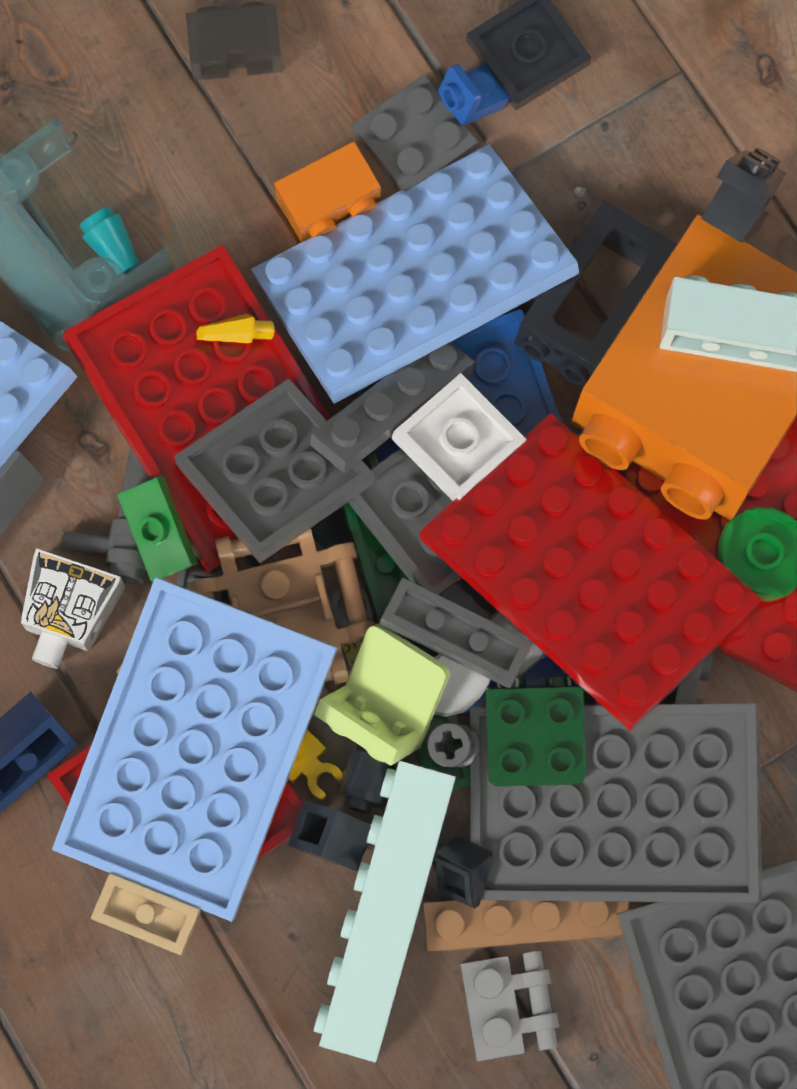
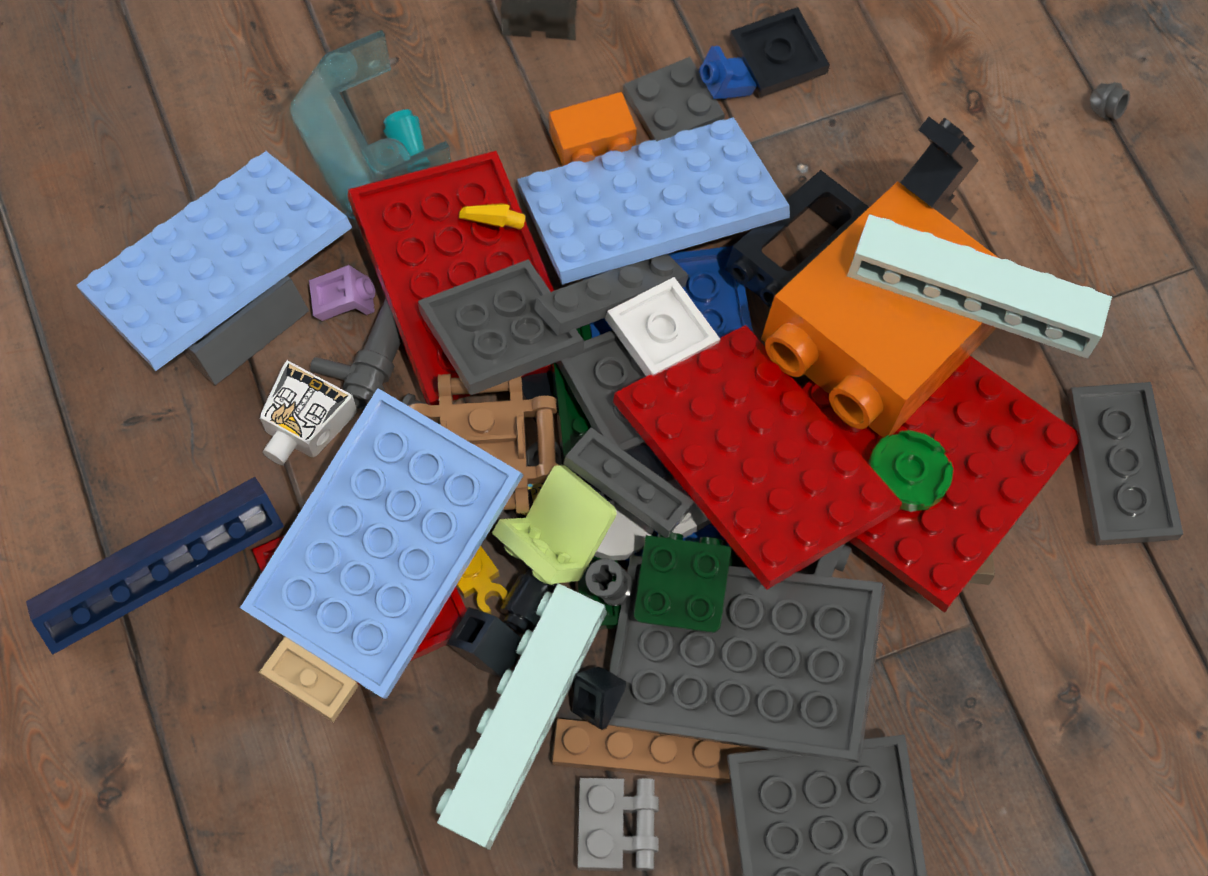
camera: 10 degrees right, 10 degrees down
(77, 450) = (341, 292): none -> lavender bracket
(157, 528) = (392, 357): green plate -> none

